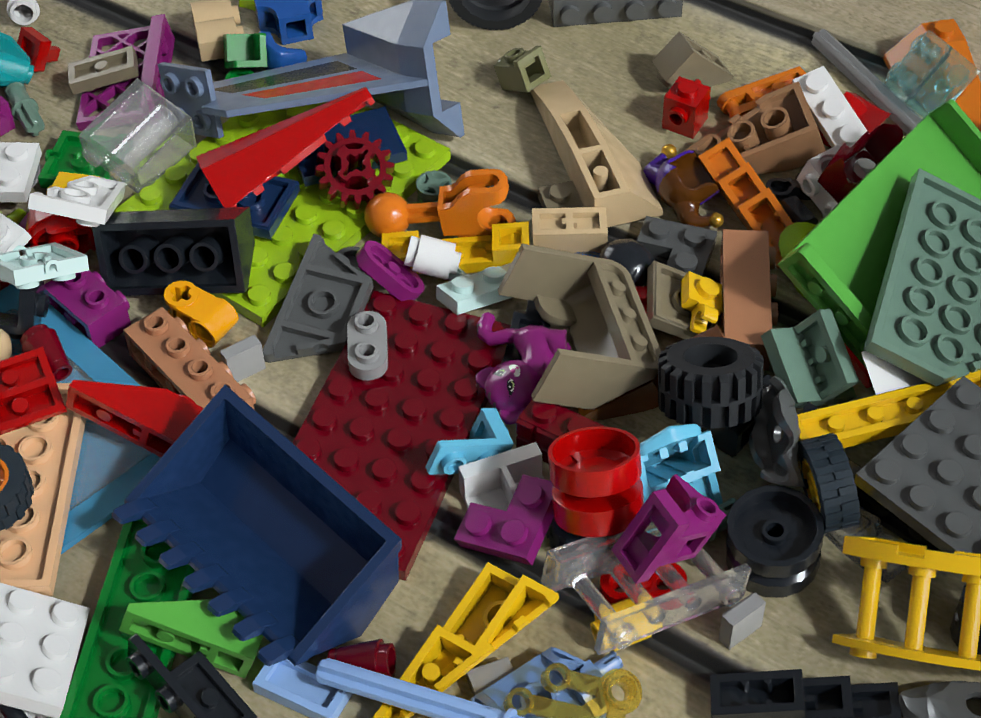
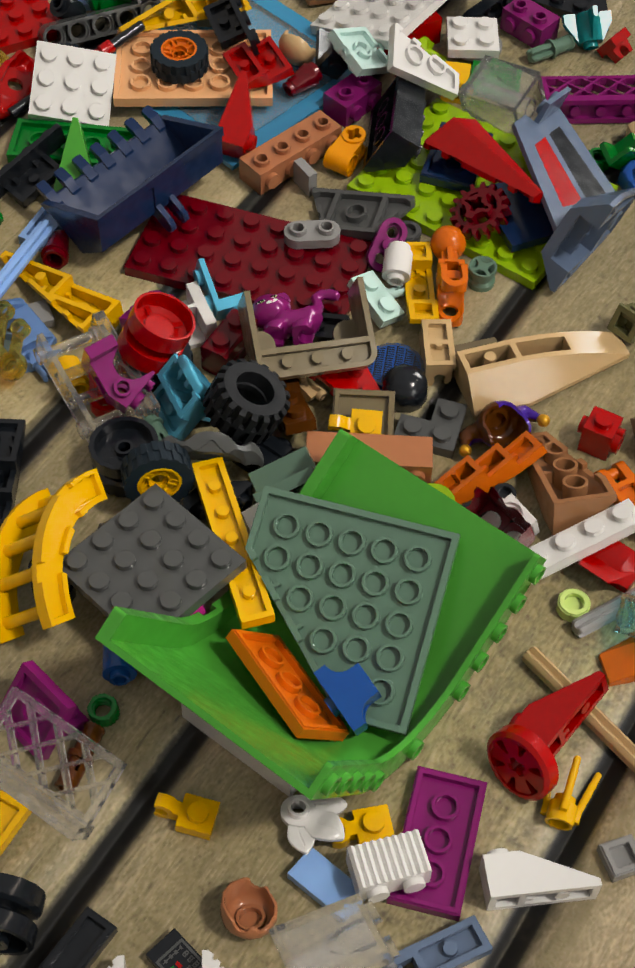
camera: 85 degrees right, 5 degrees up
(103, 70) = (588, 76): dark tan plate -> none
(741, 620) = (67, 440): light grey tile -> none

